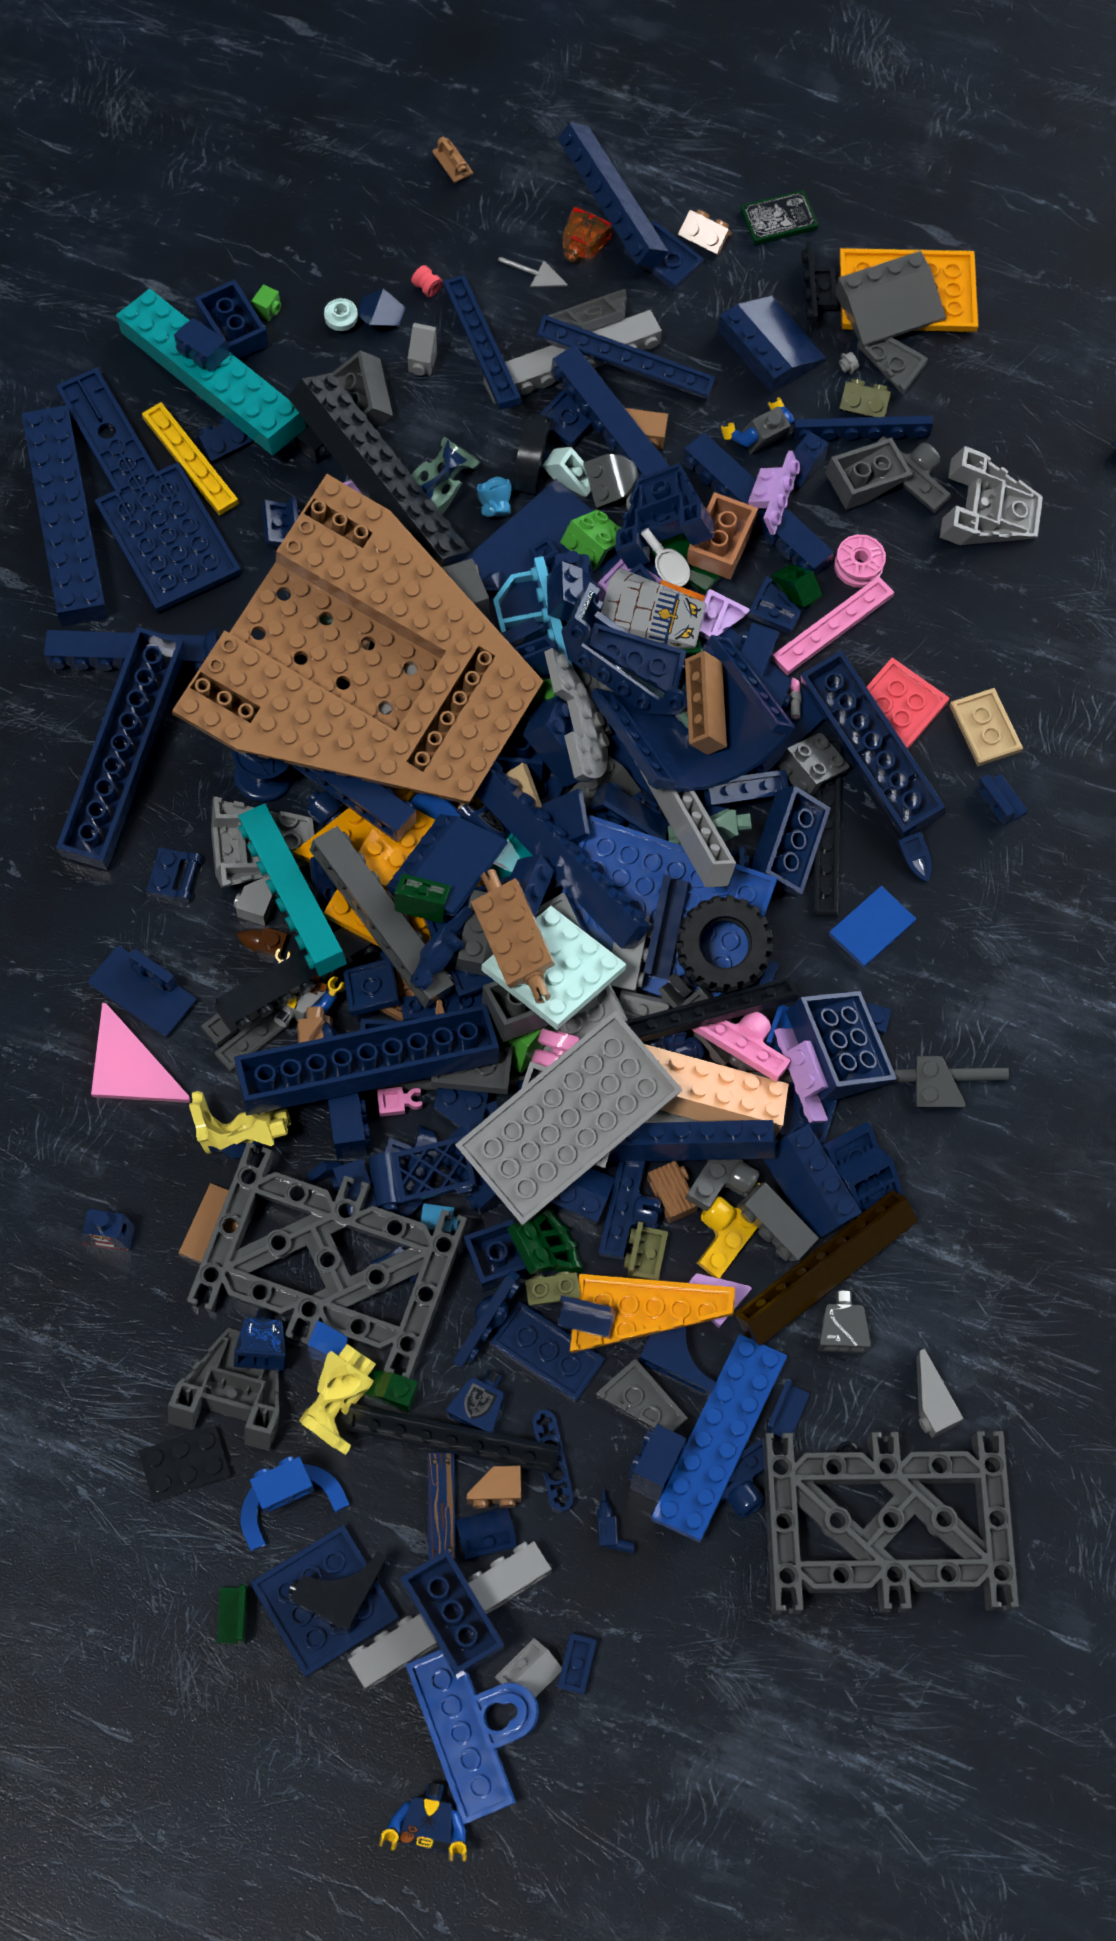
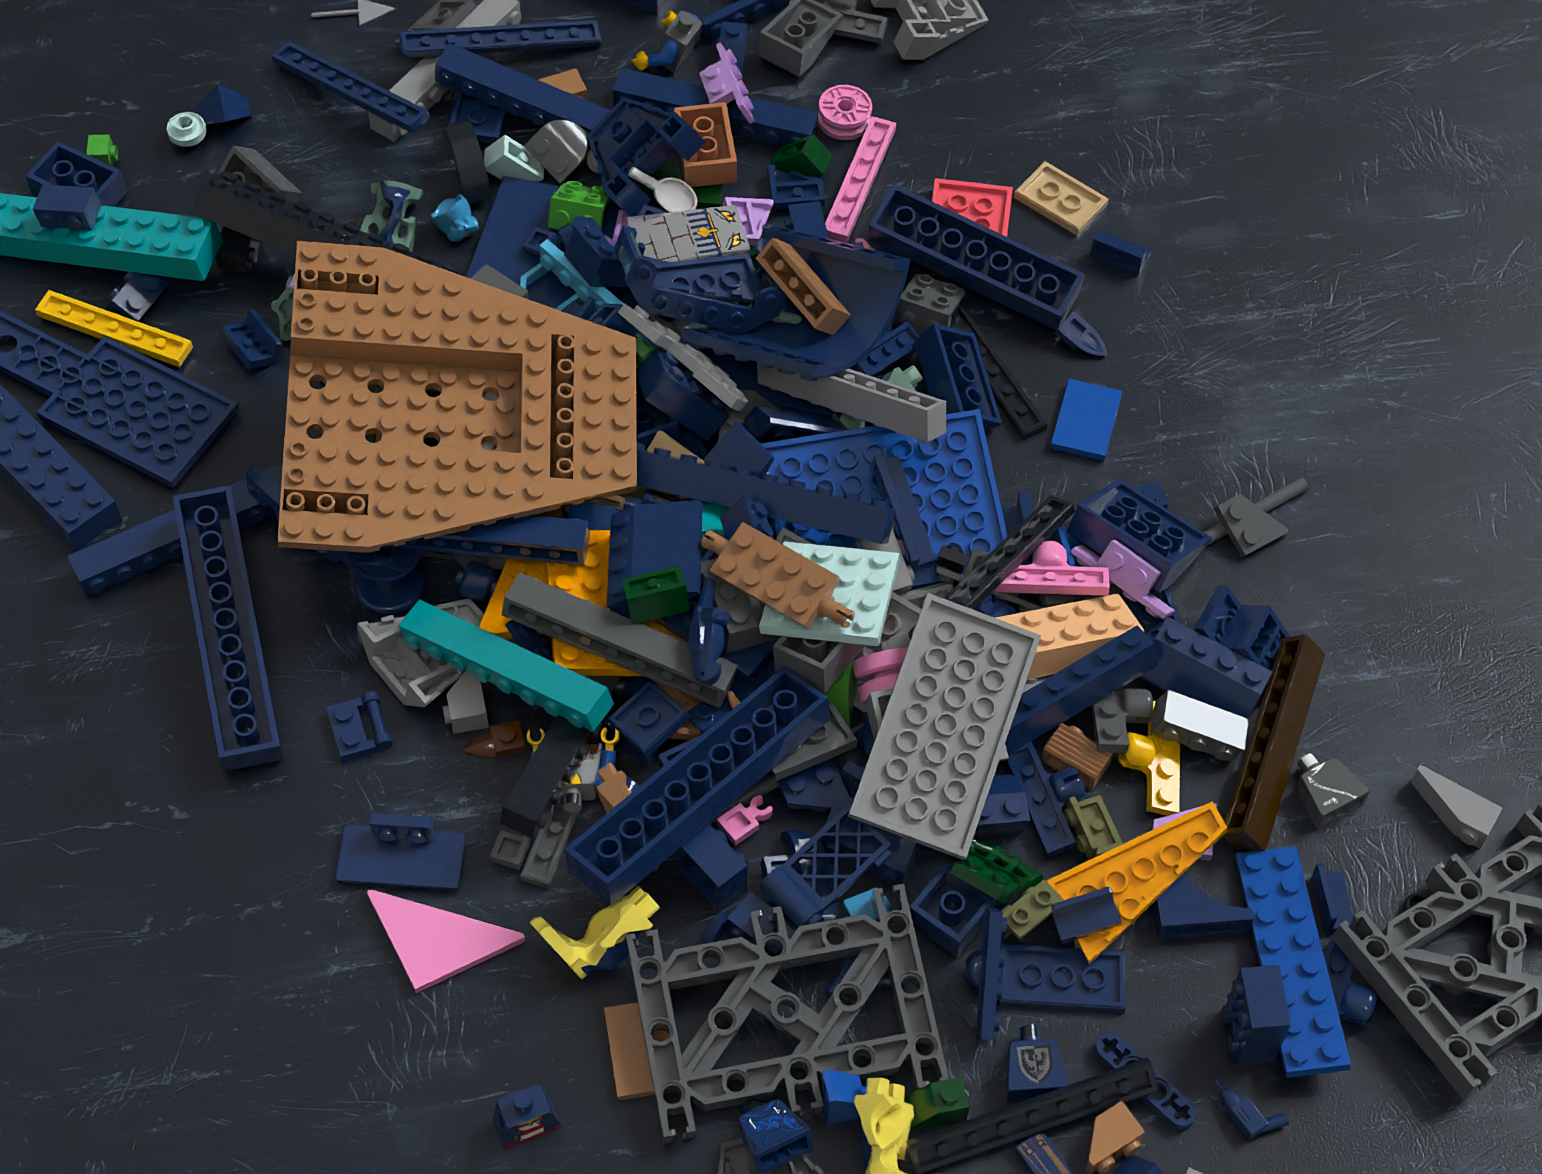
camera: 30 degrees left, 10 degrees down
(422, 349) = (293, 120): light grey slope -> none
(427, 281) = (254, 62): coral wheel -> none
(642, 1398) = (1188, 967): dark grey wing -> none
(748, 919) = (989, 463): black tyre -> none

